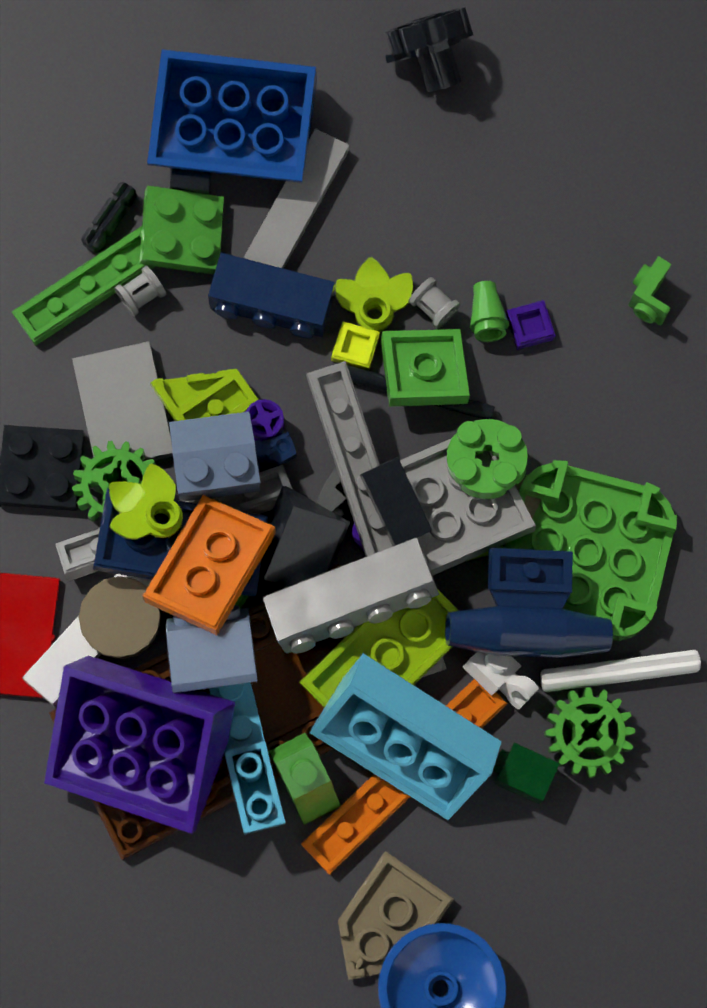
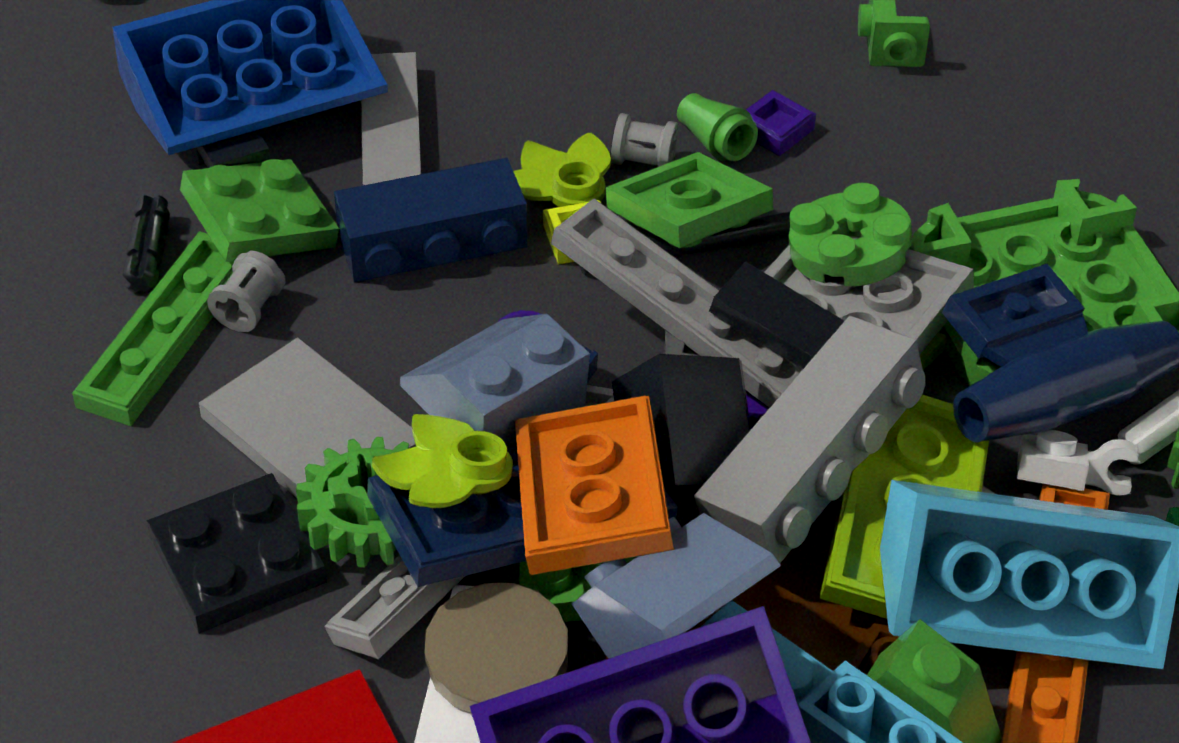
camera: 30 degrees left, 30 degrees down
(204, 394) = (406, 349): lime wing -> none

